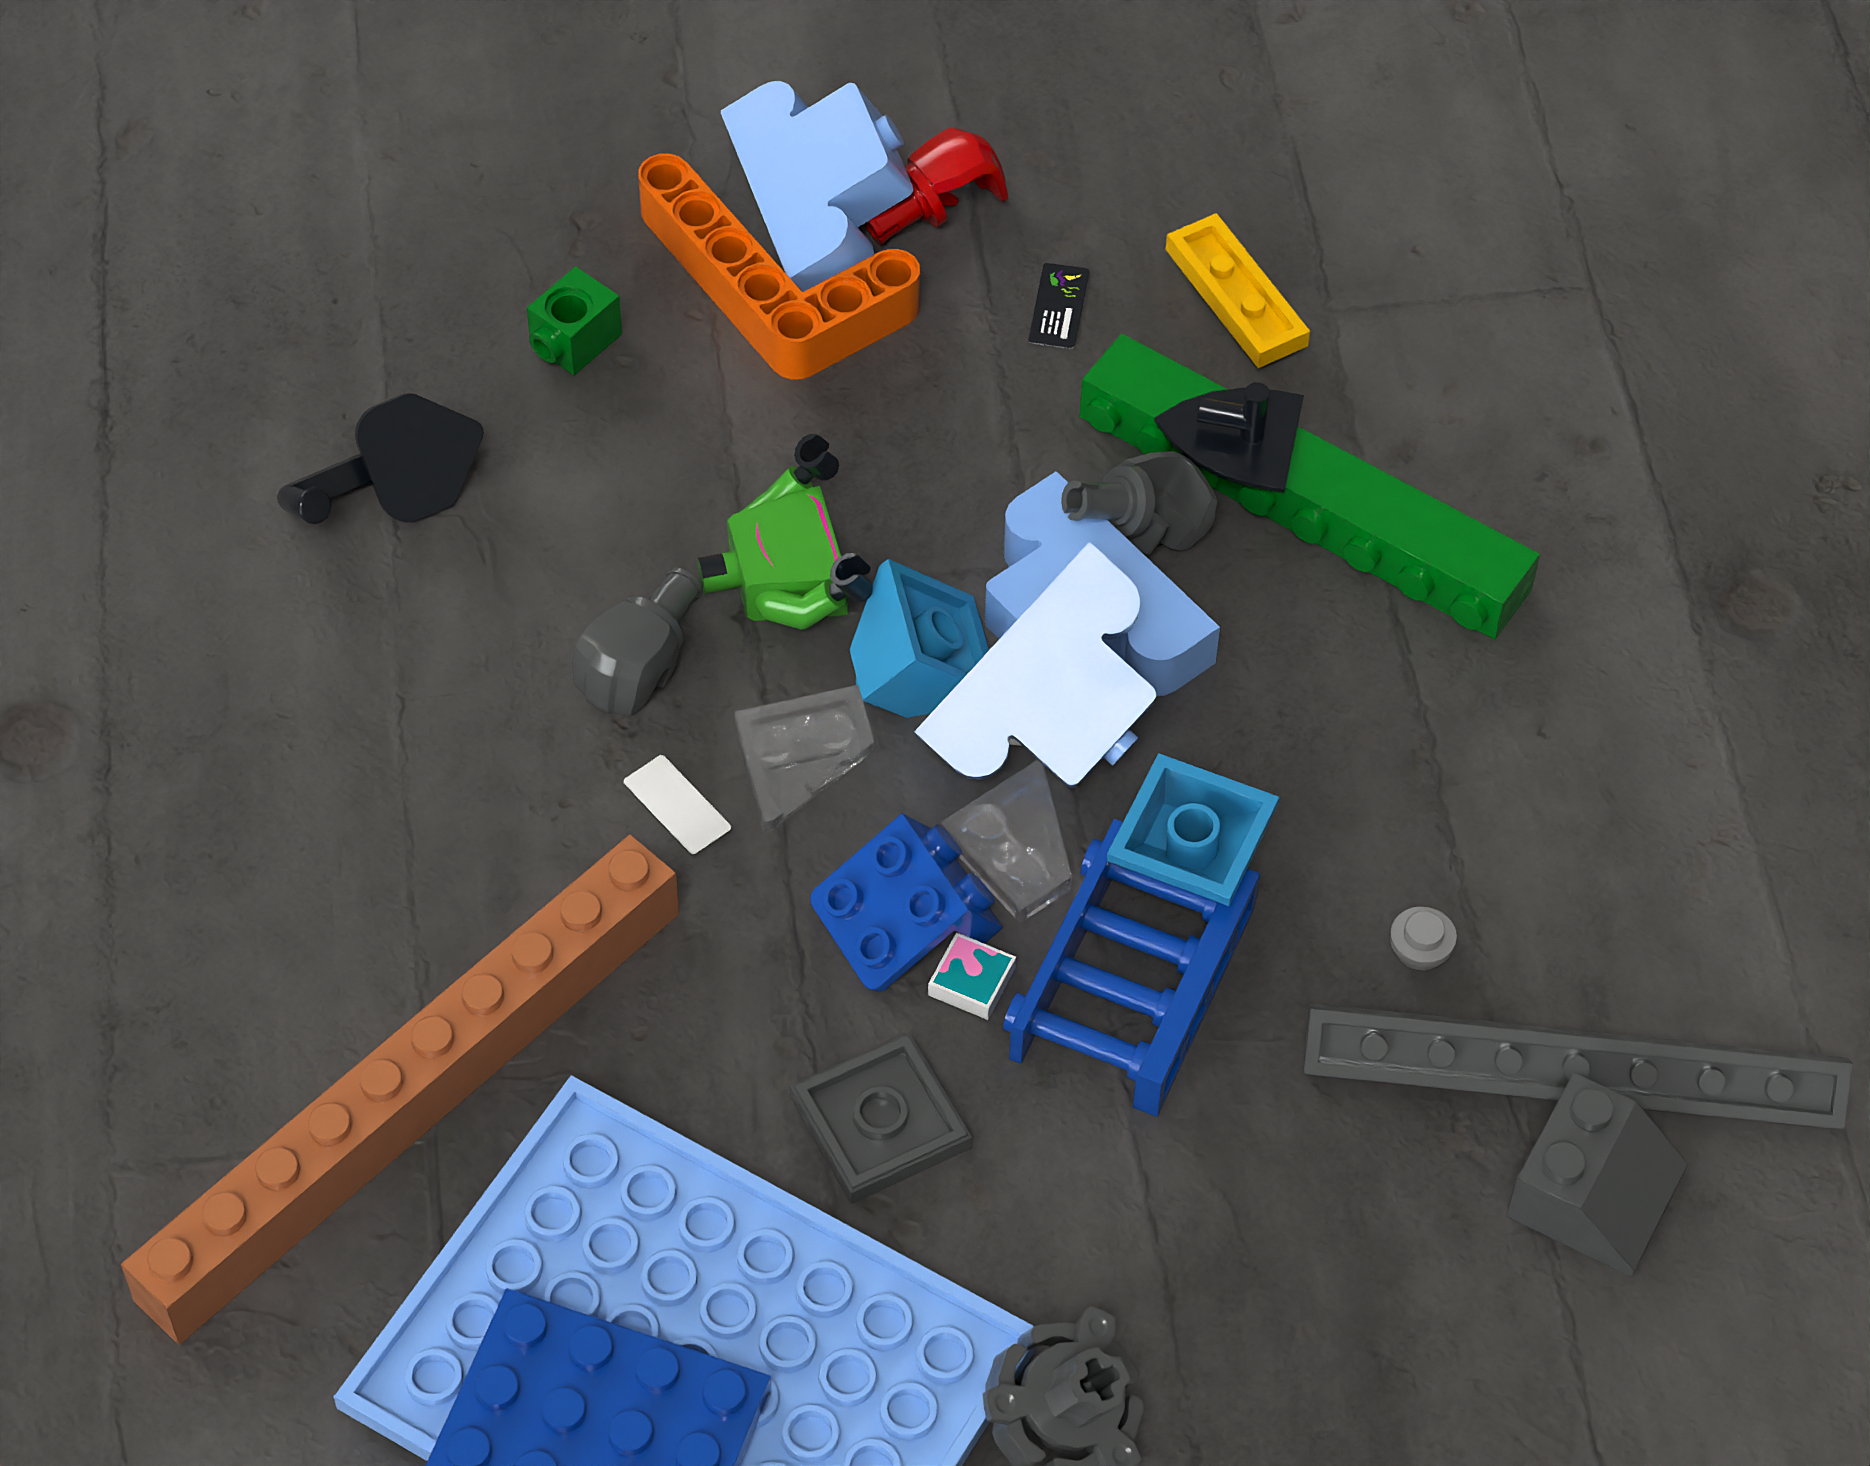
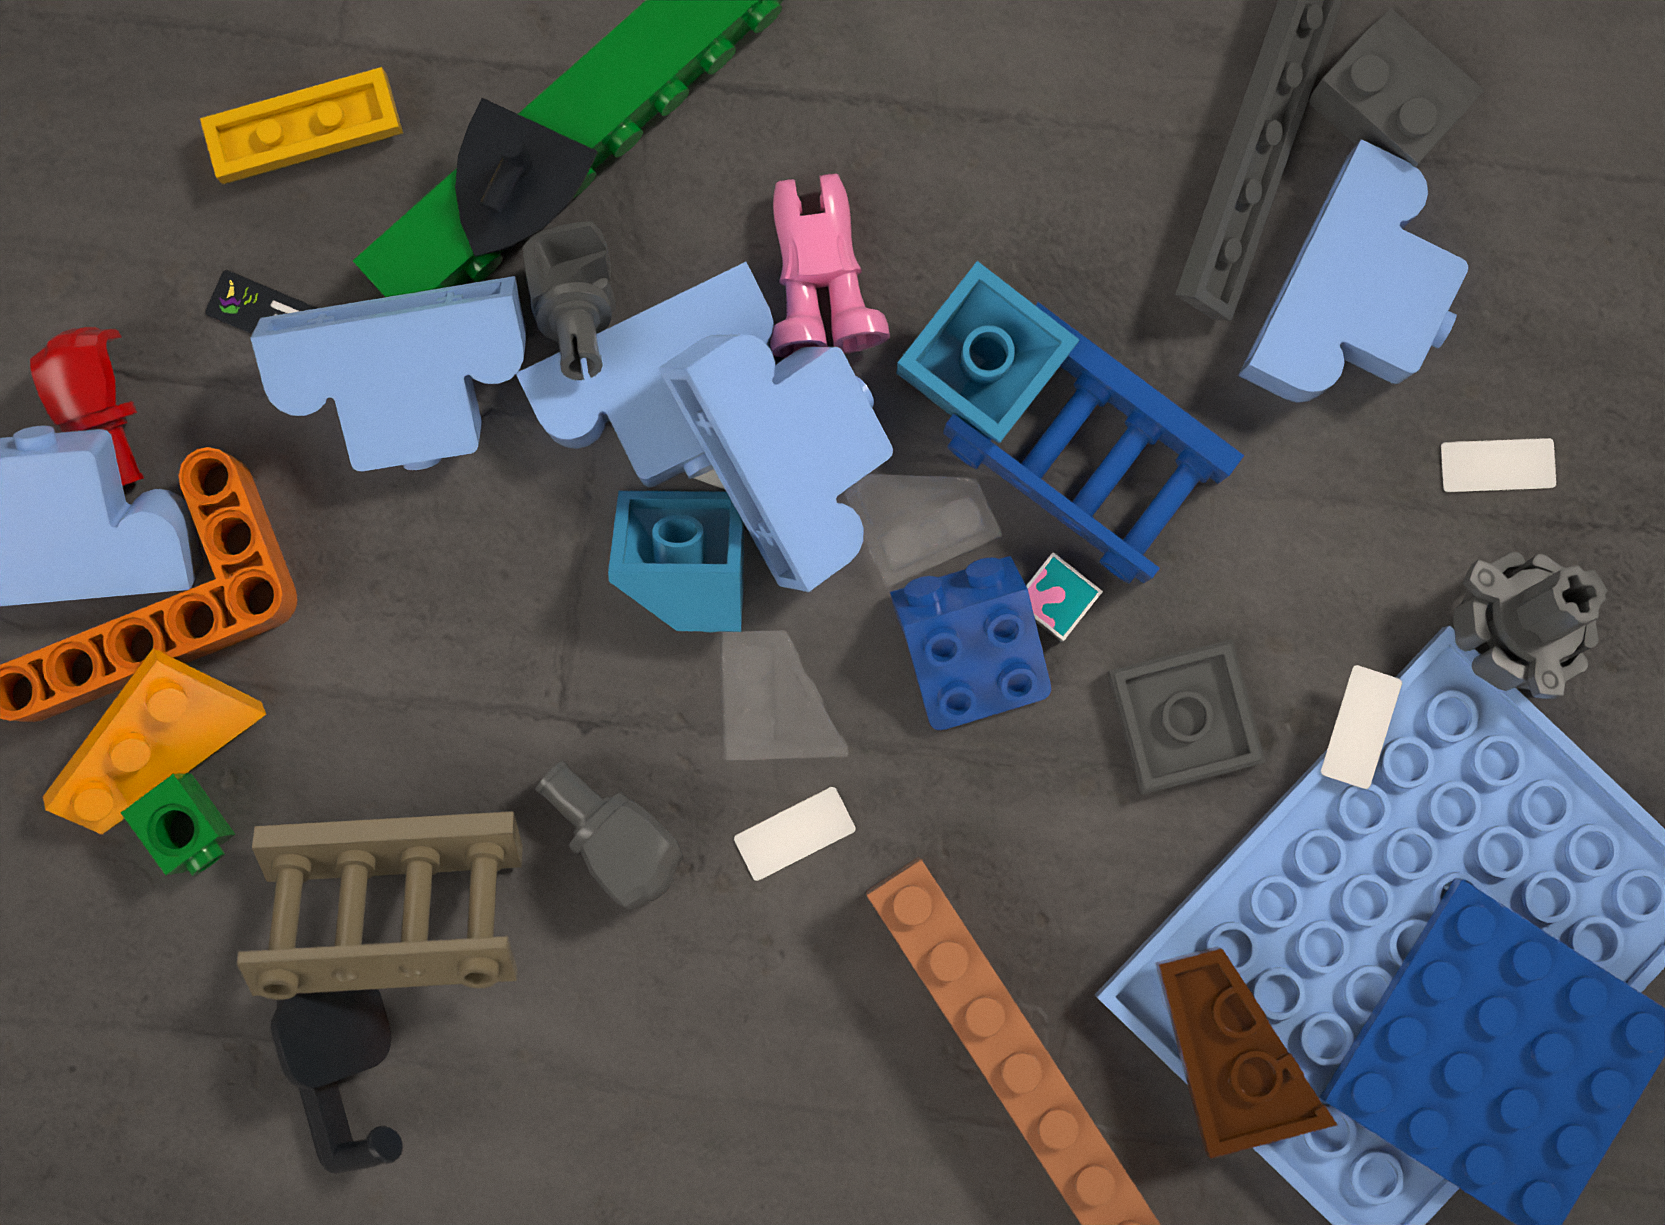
camera: 75 degrees left, 30 degrees up
(534, 1194) = (1233, 1061): none -> reddish brown wing
(572, 438) = (377, 848): none -> dark tan fence
(662, 285) = (154, 728): none -> light orange wing
(787, 551) = (540, 666): bright green torso -> none
(910, 1263) = (1361, 727): none -> white sticker
(1031, 383) = (396, 368): none -> light blue brick
(1233, 1371) = (1498, 465): none -> white sticker
(1249, 704) = (820, 255): none -> bright pink piece
(1376, 1174) = (1359, 286): none -> light blue brick
(1423, 938) = (1112, 169): light grey plate -> none

